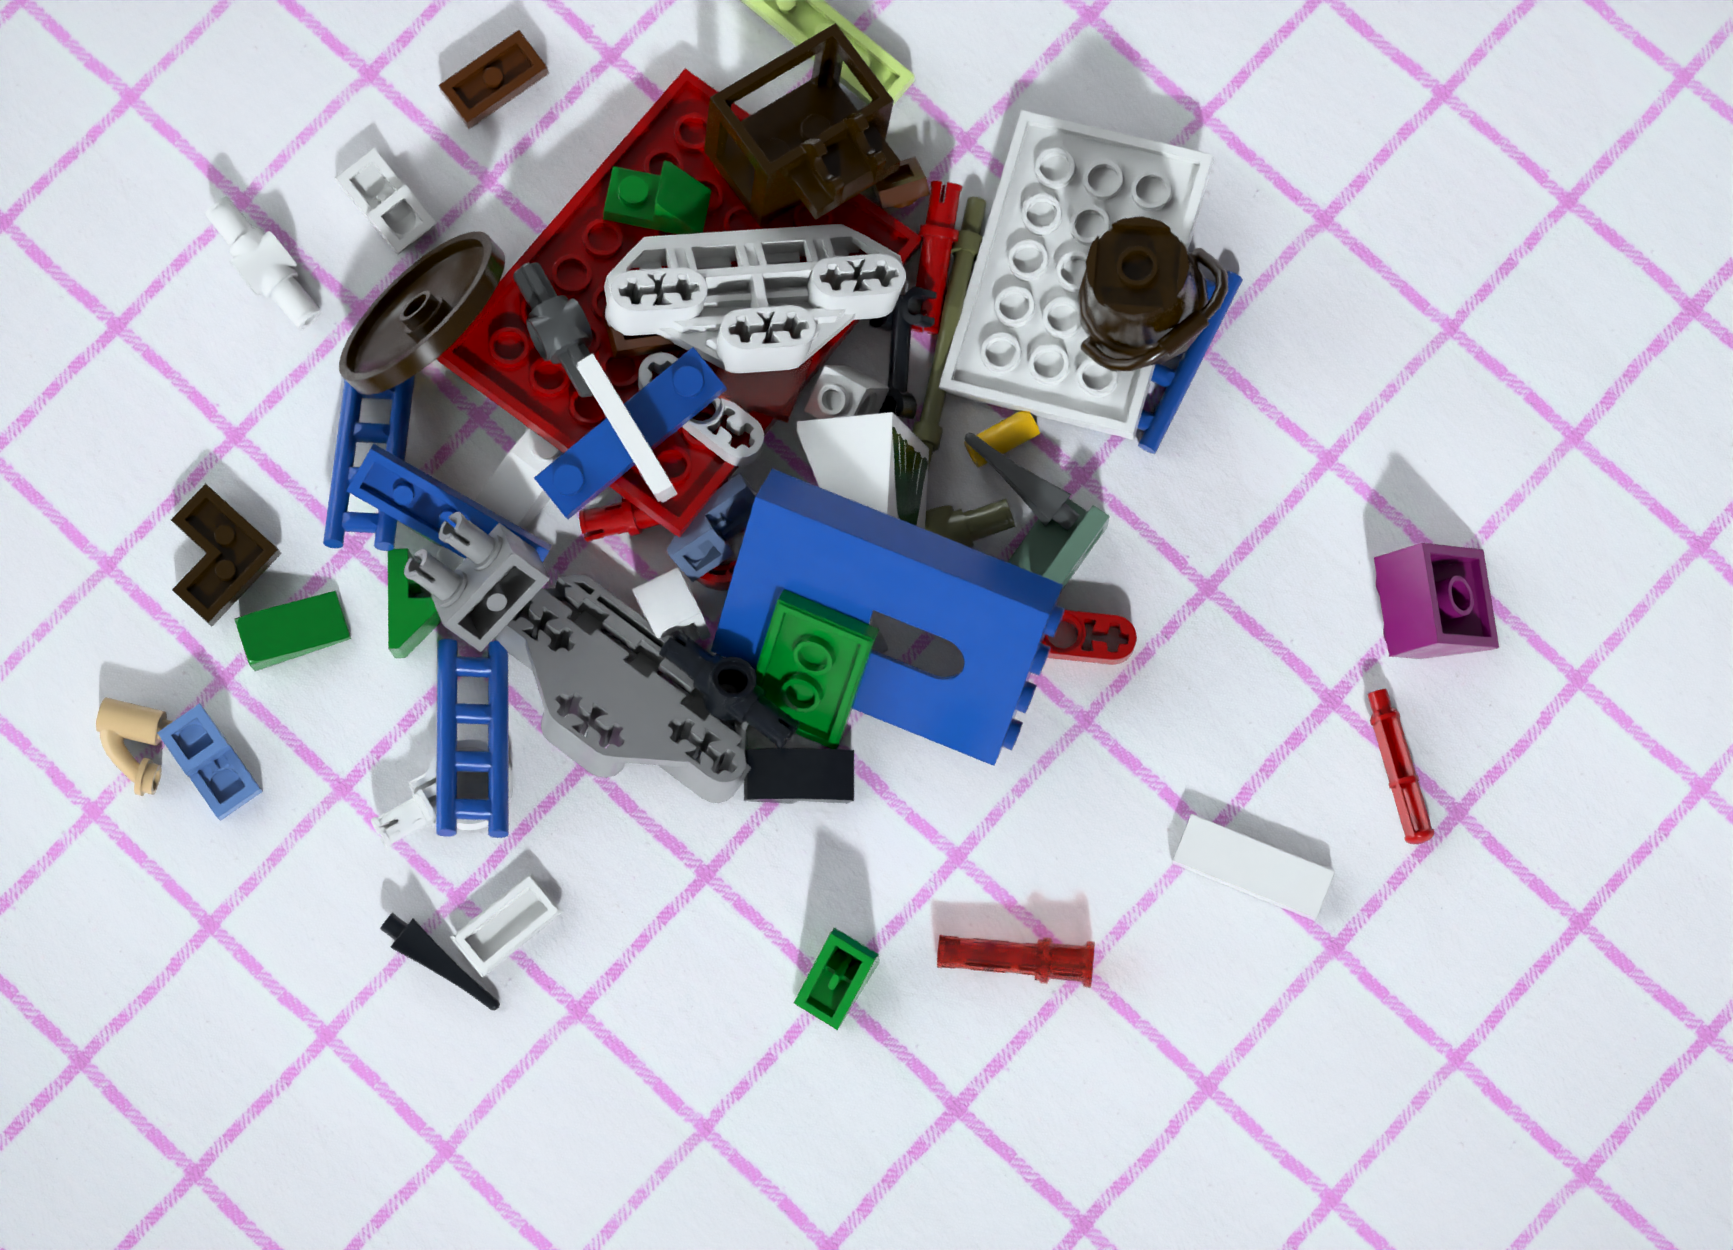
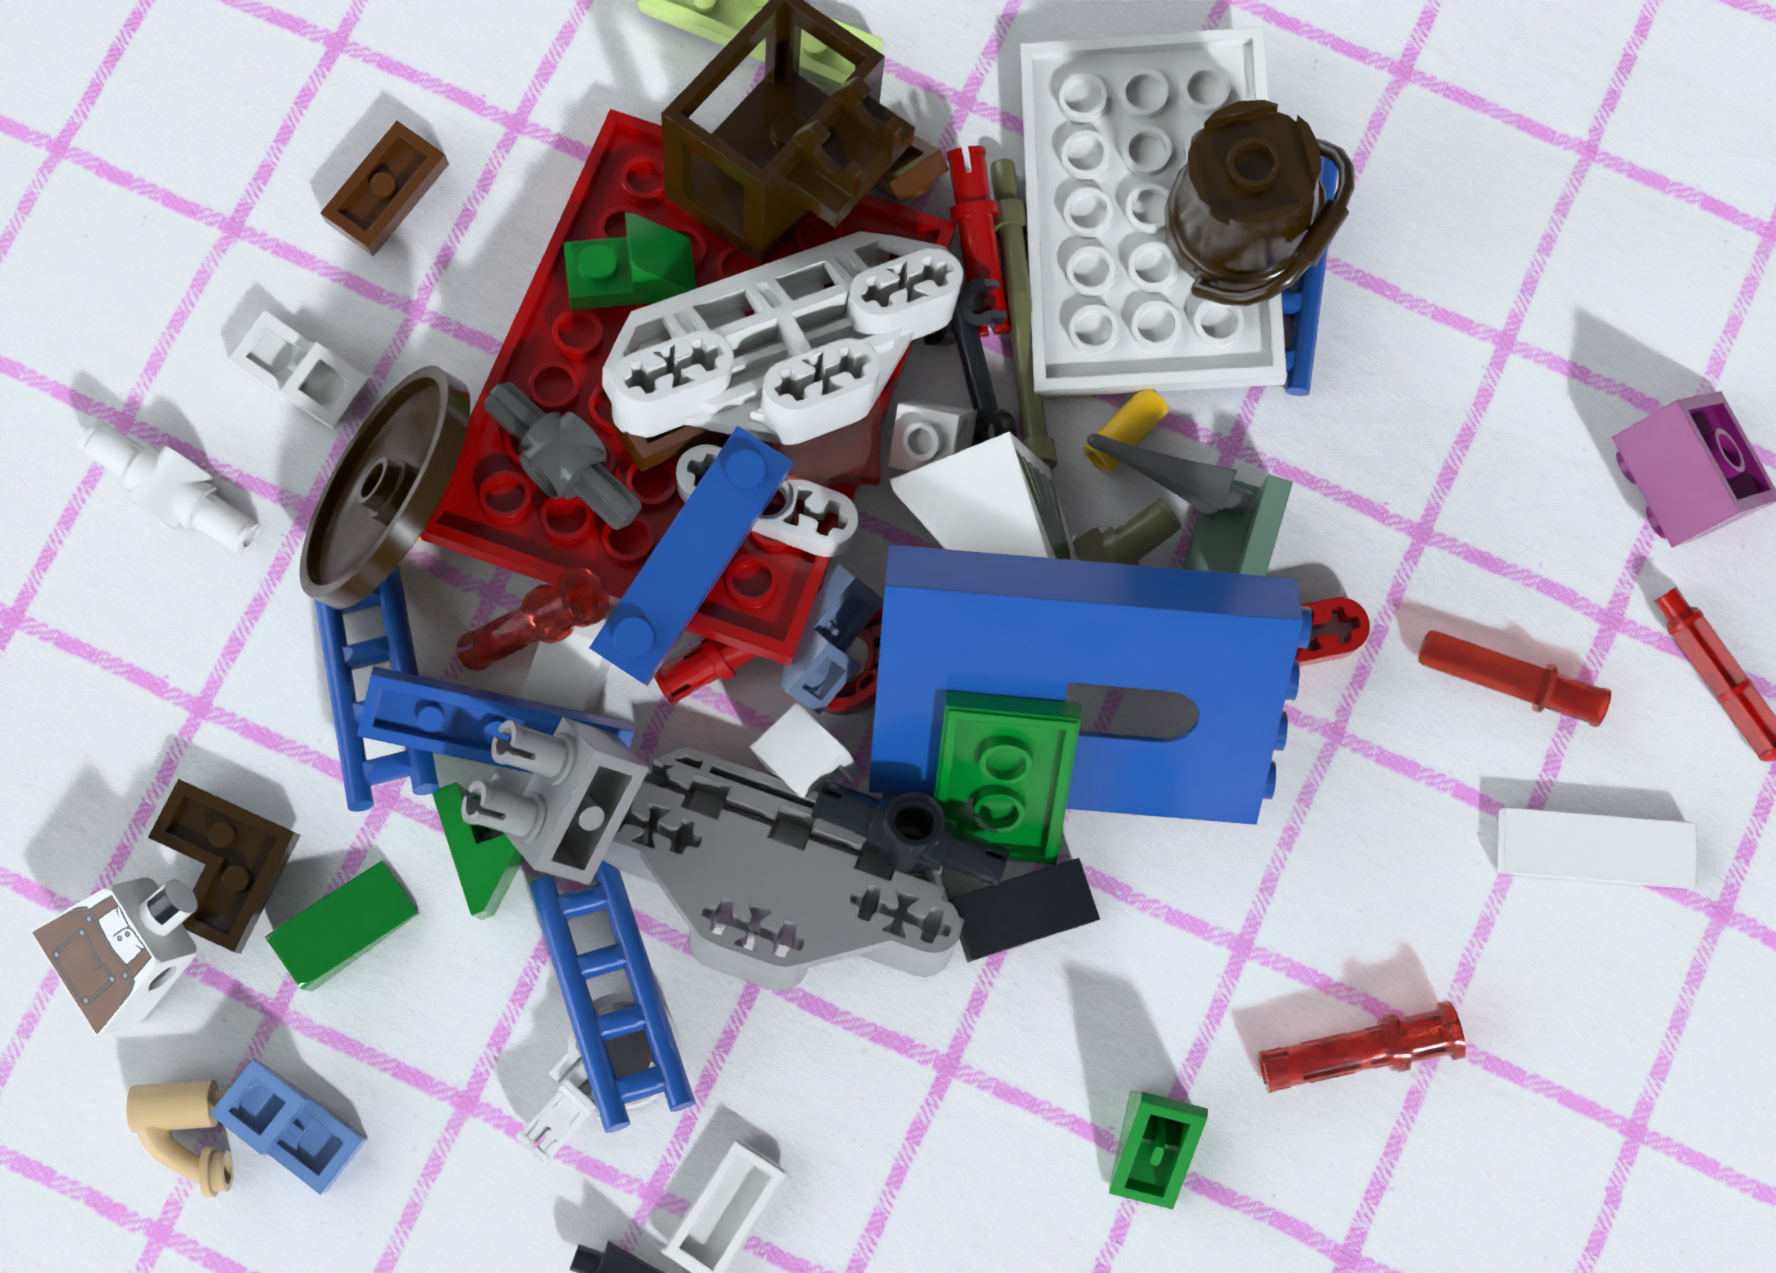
camera: 25 degrees left, 0 degrees up
(128, 595) = (120, 949): none -> torso
(510, 444) = (545, 615): none -> clear red pin
(626, 428) = (688, 550): white tile -> none
(1234, 718) = (1515, 677): none -> clear red axle

